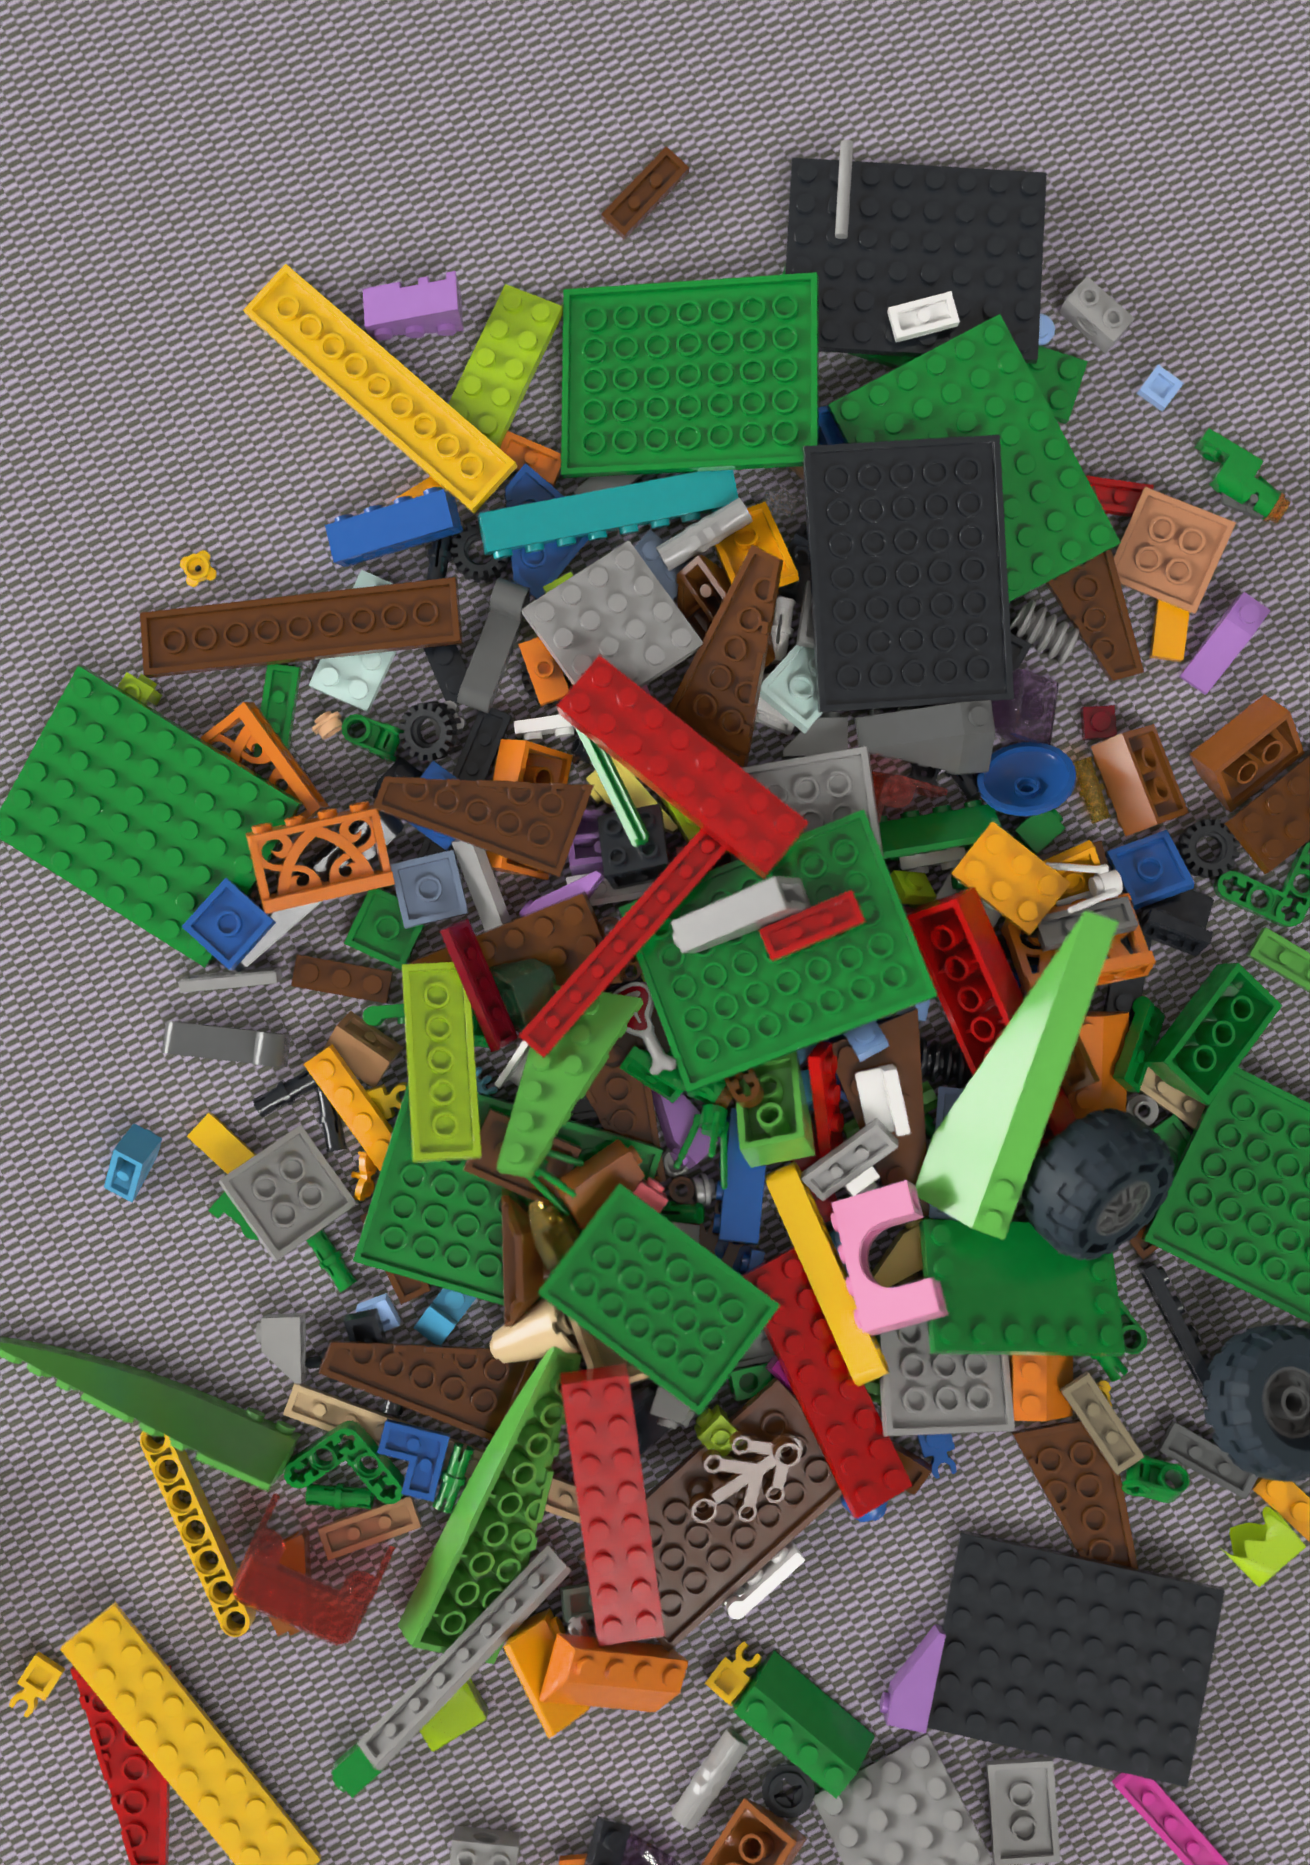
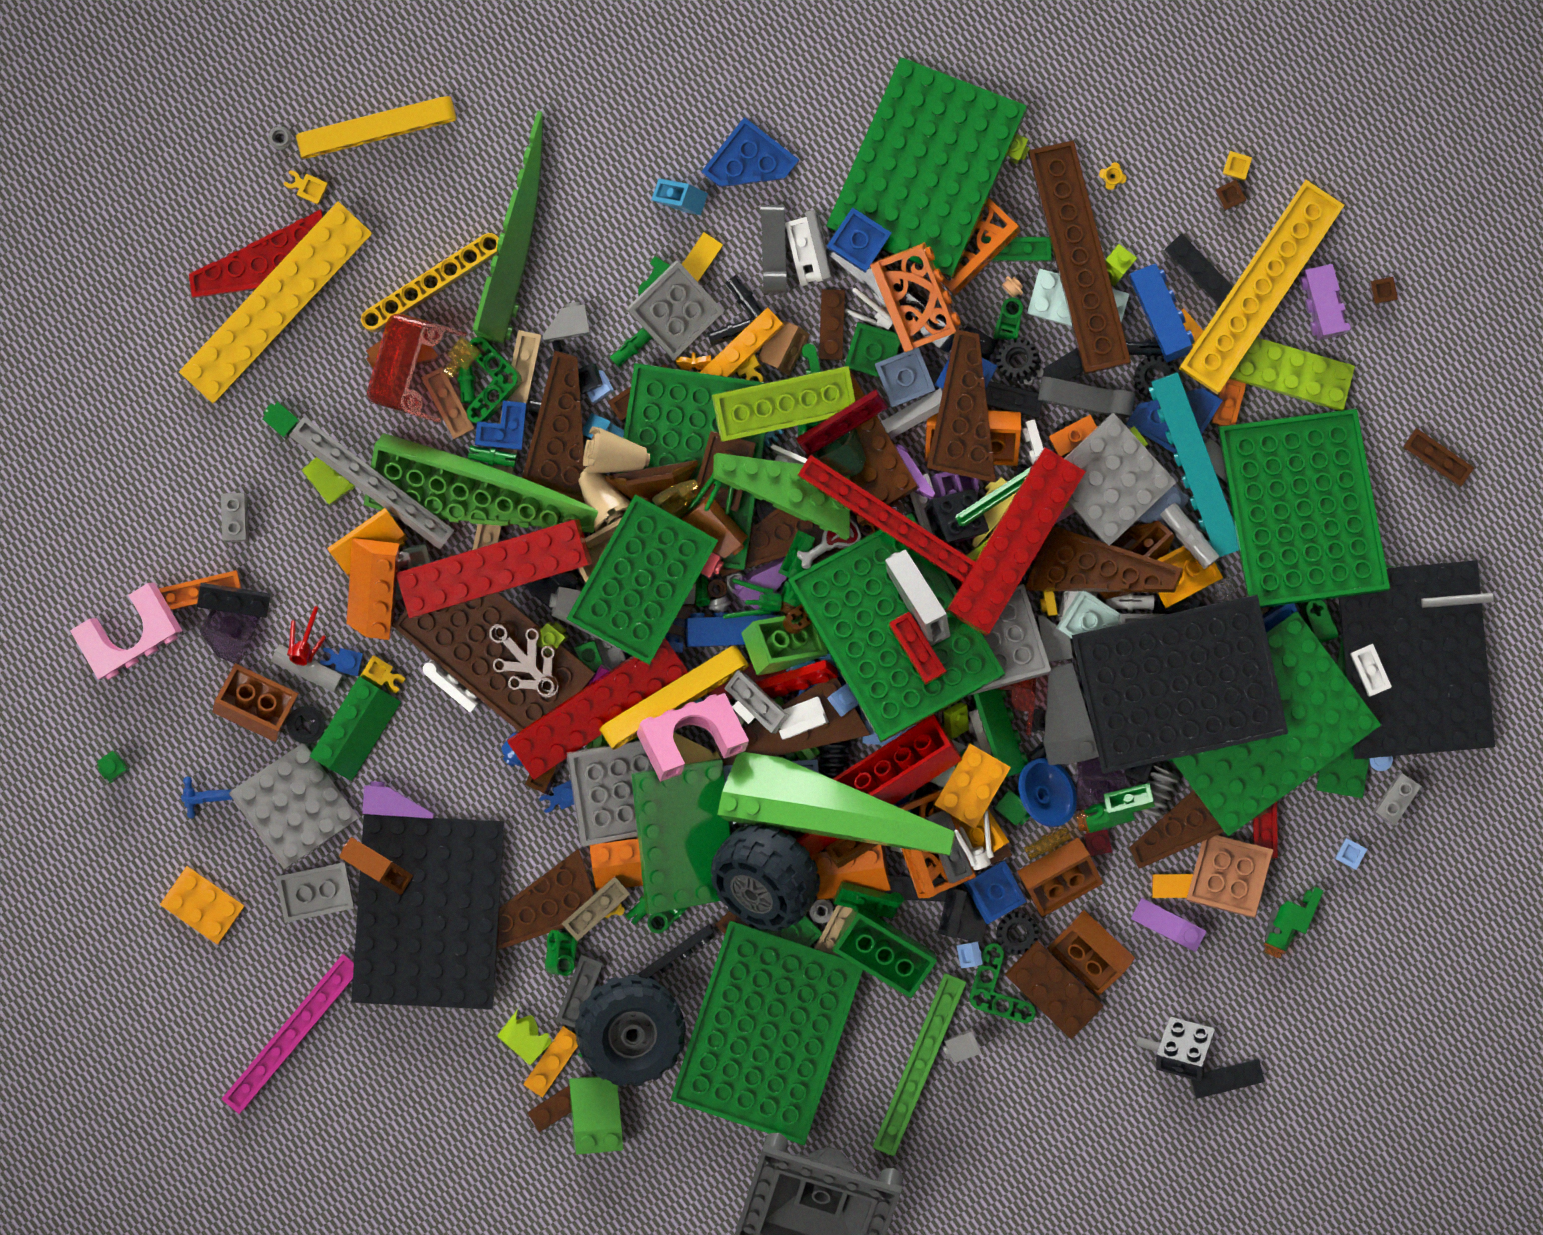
camera: 85 degrees right, 0 degrees up
(95, 1059) = (749, 158): none -> blue plate
(210, 399) = (1237, 165): none -> yellow plate
(233, 1003) = (803, 250): none -> white plate
(248, 414) = (1230, 195): none -> reddish brown plate
(306, 1501) = (462, 356): none -> clear yellow plate
(317, 576) = (1118, 263): none -> lime bracket
(340, 907) = (883, 317): none -> white plant
(344, 471) = (1199, 269): none -> black plate
(409, 230) = (1383, 290): none -> reddish brown plate
(475, 1310) = (613, 453): none -> tan cone
(688, 1788) = (301, 653): none -> red plant
(707, 1721) = (346, 662): none -> blue plate
(768, 740) = (1048, 604): none -> yellow plate
(842, 379) = (1320, 624): none -> green piece
(1004, 1728) = (375, 865): none -> dark orange slope
(1061, 688) = (1116, 809): none -> green plate
(1229, 917) = (969, 954): none -> light blue plate

